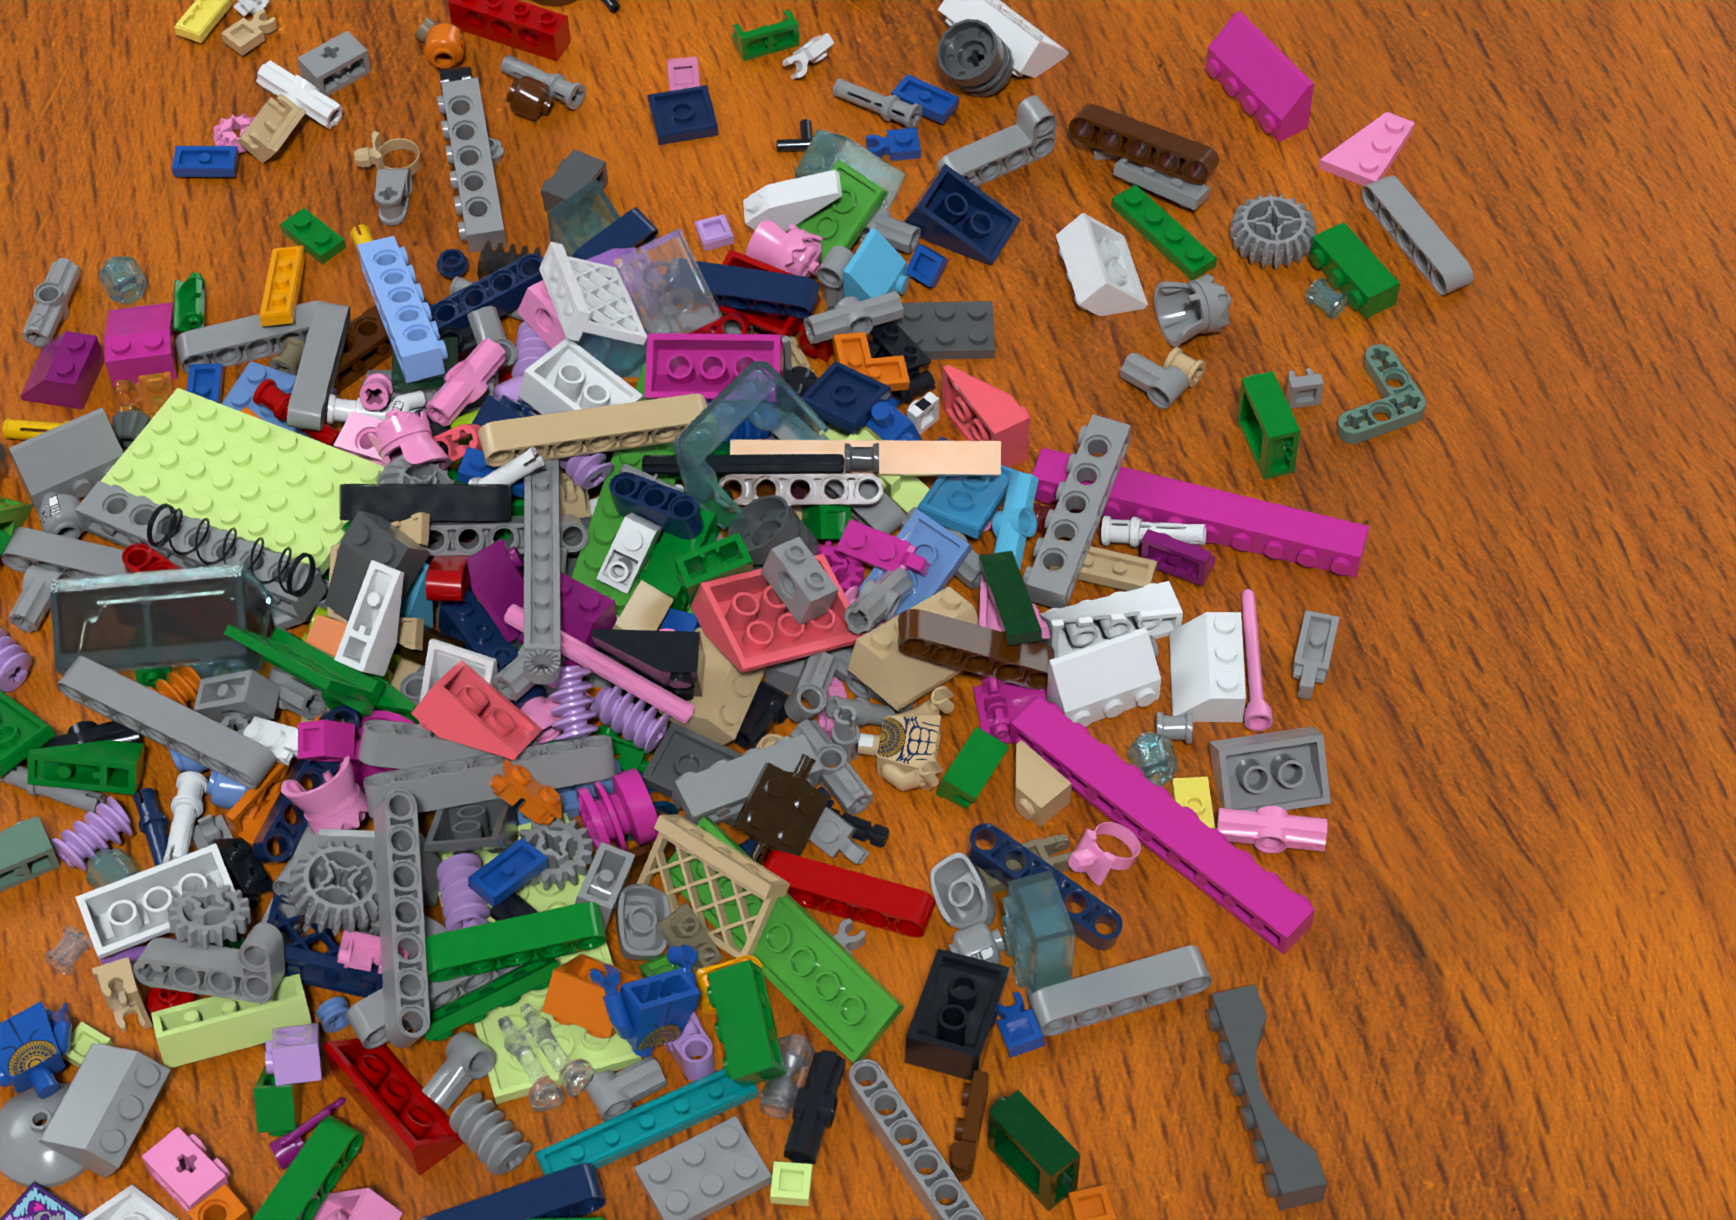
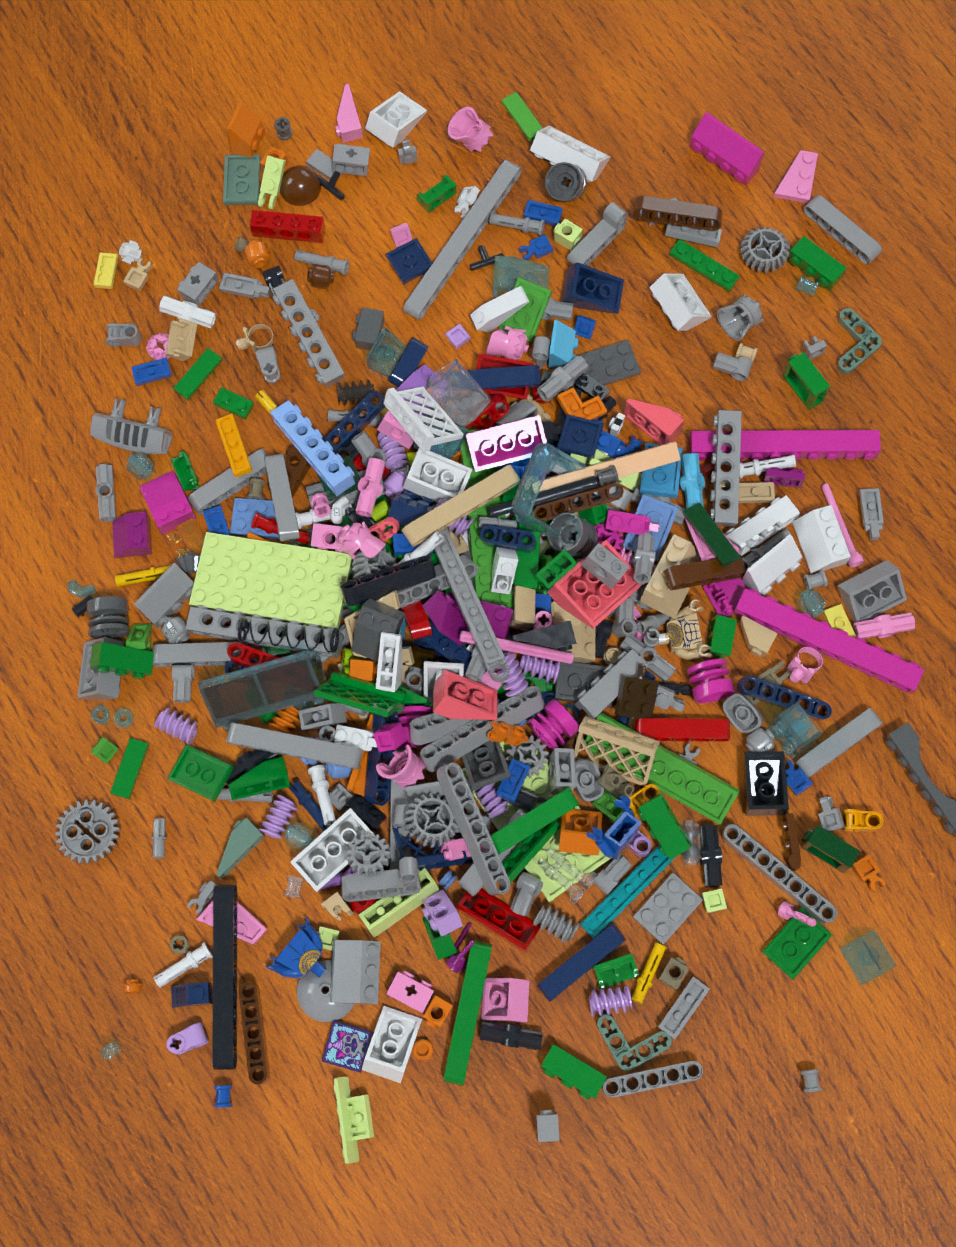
camera: 15 degrees left, 20 degrees up
(130, 232) = (129, 434): none -> light grey piece
(188, 103) = (119, 335): none -> light grey piece
(276, 183) = (198, 374): none -> green tile
(403, 84) = (243, 286): none -> light grey hinge
(452, 263) = (318, 396): dark blue plate -> none
(776, 104) = (462, 240): none -> light grey beam
(922, 823) = (709, 677): none -> dark pink wheel
(951, 132) = (568, 241): none -> yellowish green brick
(1061, 1101) = (830, 818): none -> light grey plate
(1110, 1129) = (858, 820): none -> light orange piece

